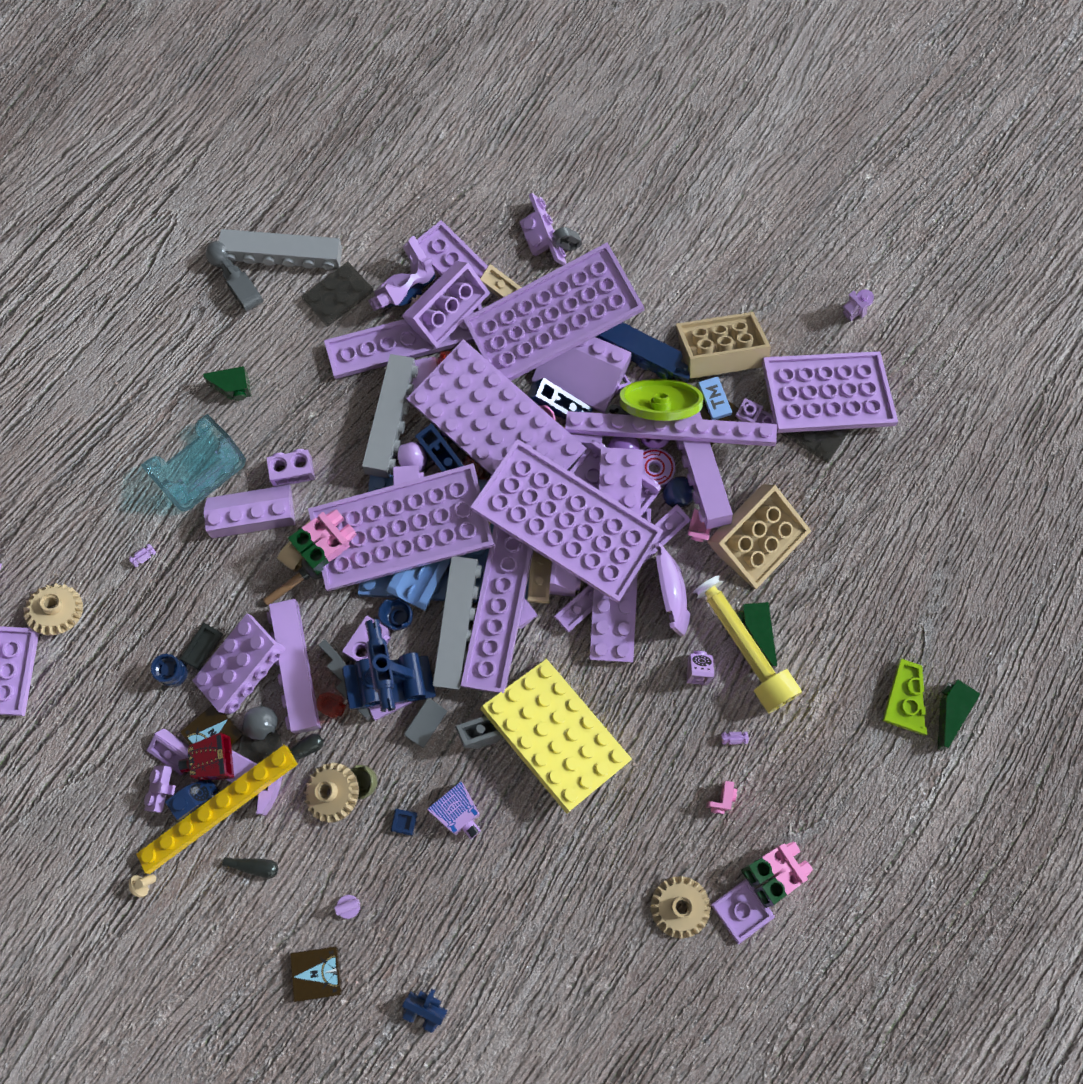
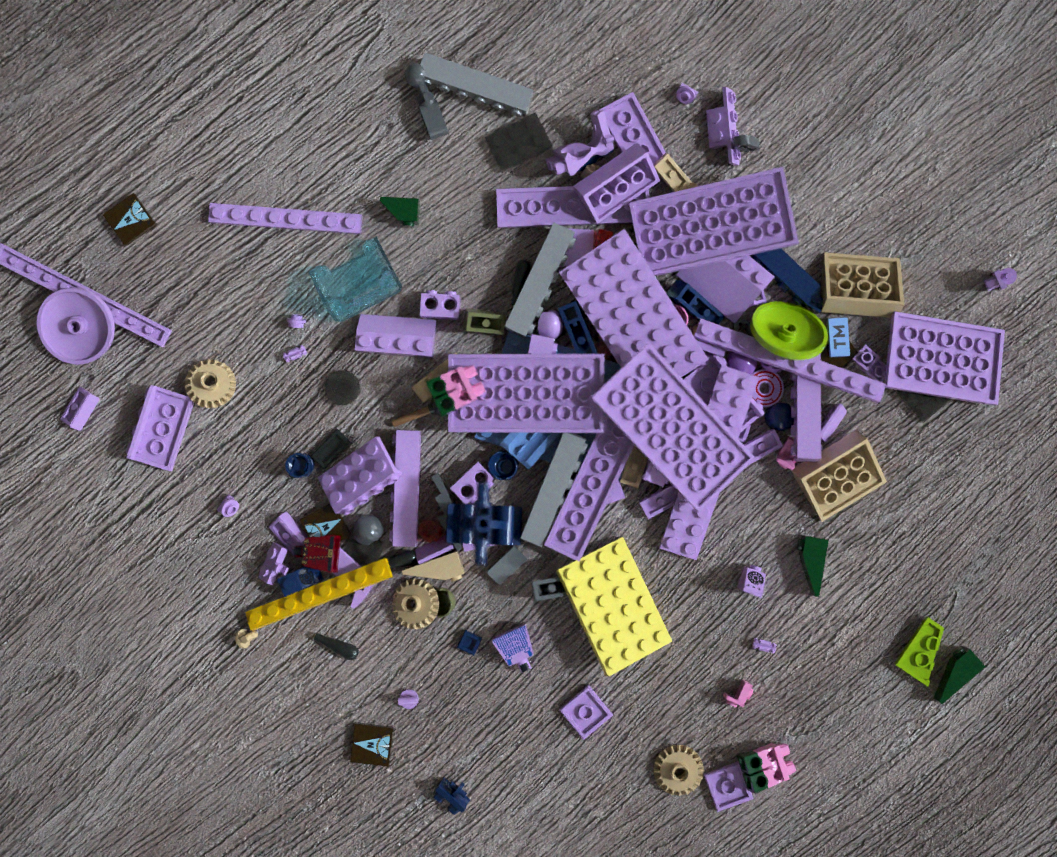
camera: 20 degrees right, 15 degrees up
(96, 738) = (228, 506): none -> lavender plate
(107, 422) = (285, 218): none -> lavender plate
(137, 520) = (296, 321): none -> lavender plate
(201, 578) = (342, 387): none -> clear smoke wheel
(340, 470) = (483, 321): none -> olive slope
(340, 726) = (433, 549): none -> lavender slope
(351, 744) = (442, 567): none -> tan slope
(369, 410) = (521, 274): none -> pearl dark grey piece
(495, 211) = (686, 94): none -> lavender plate
(556, 867) = (585, 712): none -> lavender tile
(673, 590) = (748, 508): lavender slope -> none
(735, 483) = (832, 421): none -> lavender slope
(775, 688) = (811, 616): light yellow piece -> none

